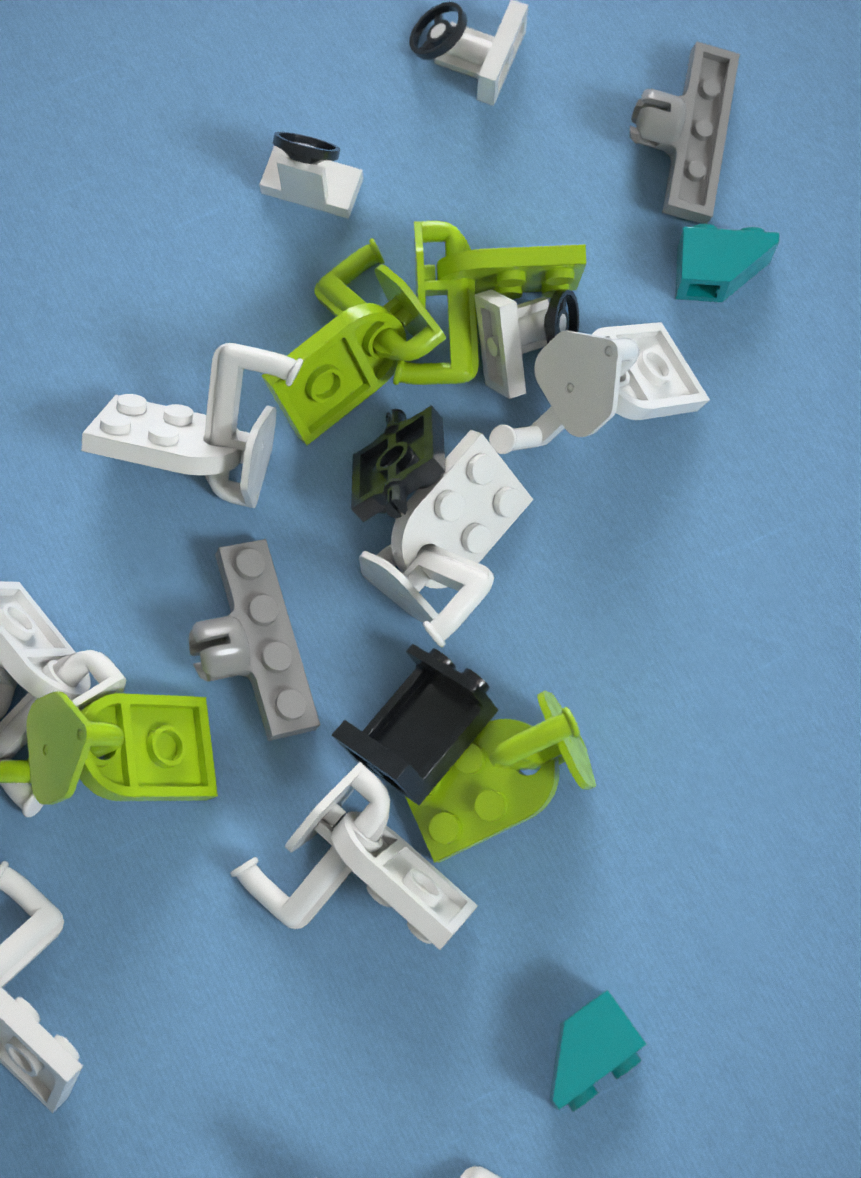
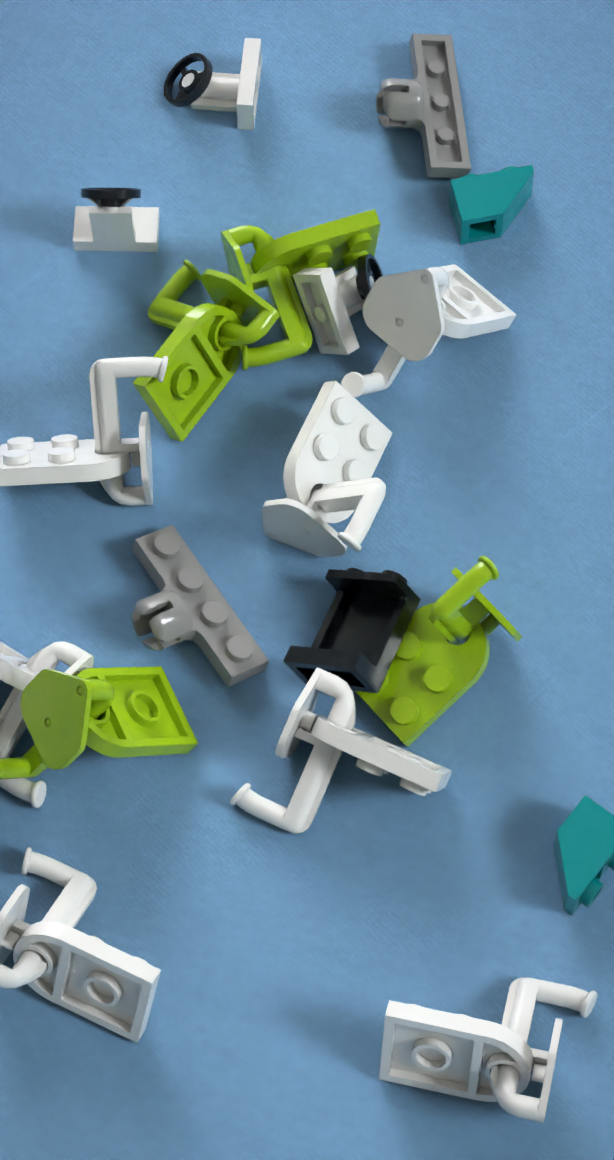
camera: 15 degrees left, 10 degrees down
(398, 463) = (270, 427): black plate -> none

